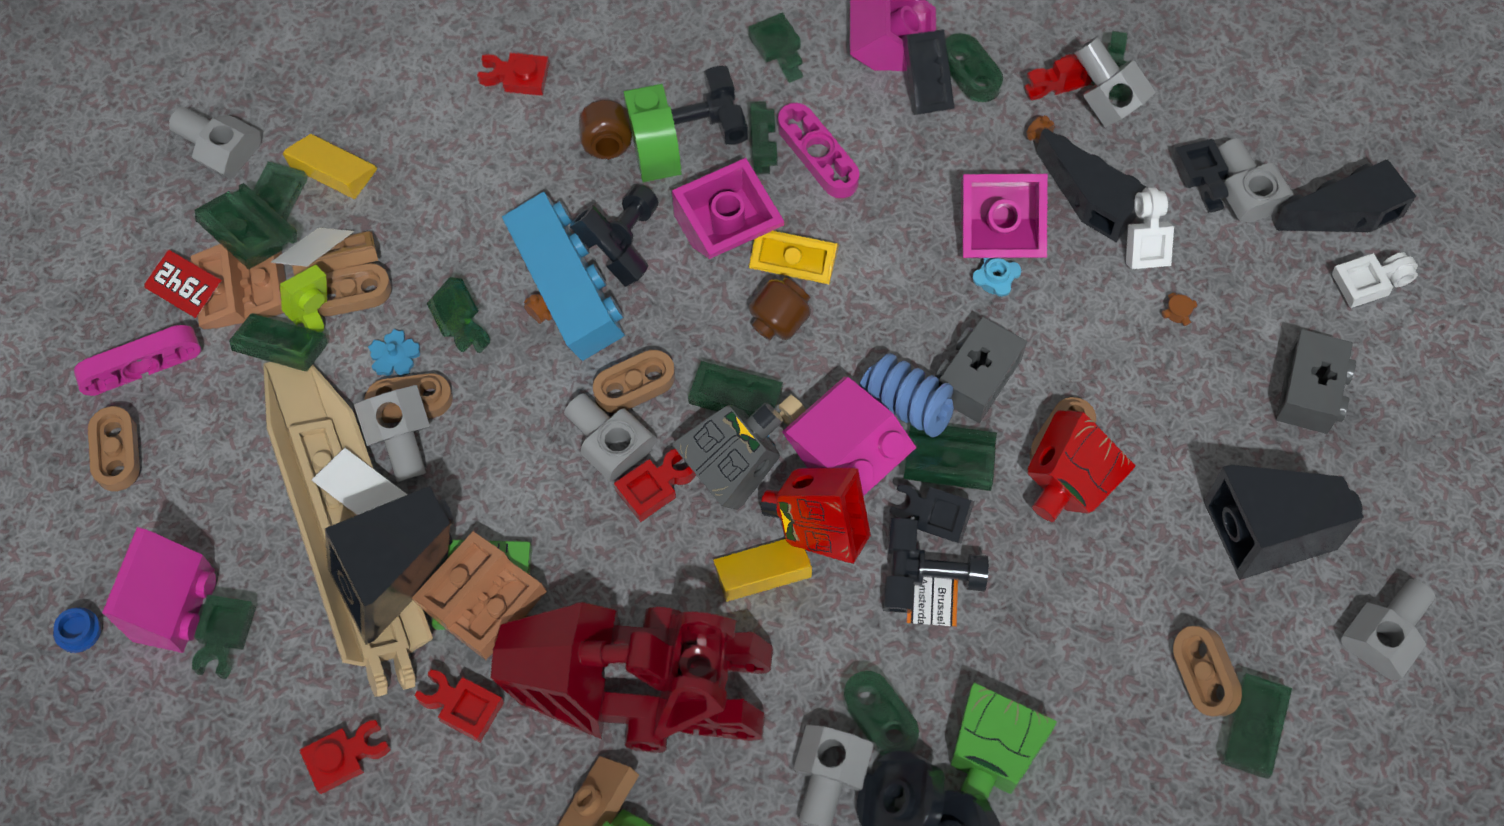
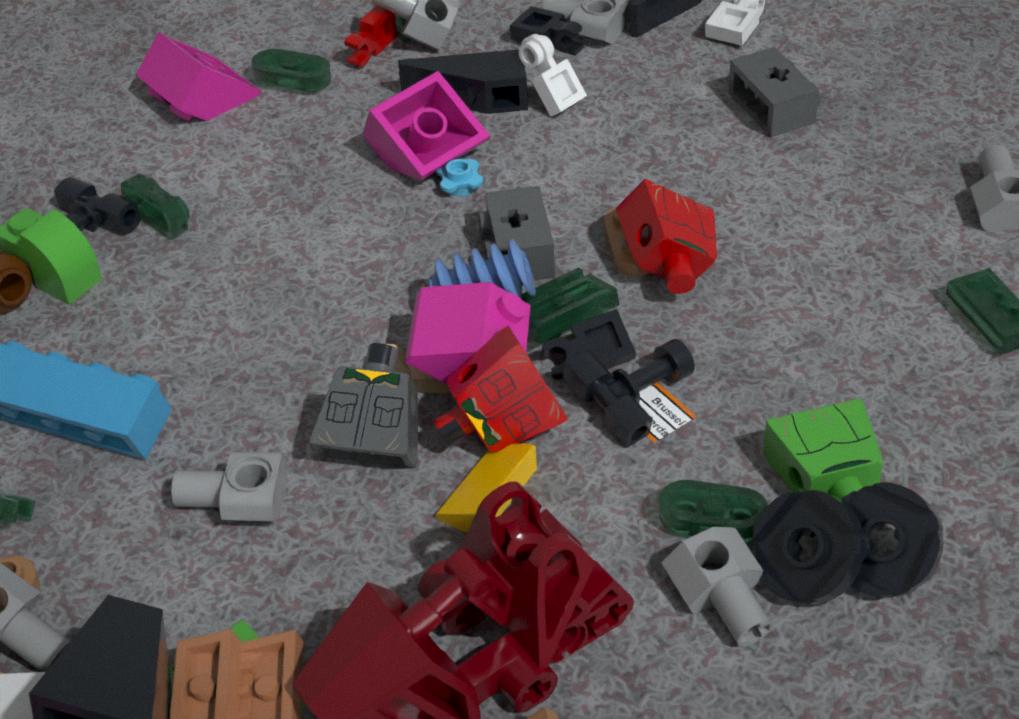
camera: 40 degrees left, 20 degrees down
(537, 308) = (60, 445): dark orange piece -> none
(616, 236) = (87, 334): black bar -> none
(632, 381) = (209, 440): medium nougat plate -> none
(650, 488) = (319, 499): red plate -> none
(722, 386) = (305, 387): clear green plate -> none
(725, 209) = (176, 259): dark pink slope -> none
(778, 40) = (101, 140): clear green plate -> none
(780, 309) = (301, 299): reddish brown head -> none
(794, 256) = (269, 265): yellow slope -> none
(818, 134) = (242, 193): dark pink beam -> none
(928, 72) = (260, 84): black plate -> none
(1037, 126) = (390, 75): dark orange piece -> none
(1179, 308) = (623, 115): dark orange piece -> none
(1206, 674) = (921, 300): medium nougat plate -> none
(1279, 516) = (850, 168): black slope -> none

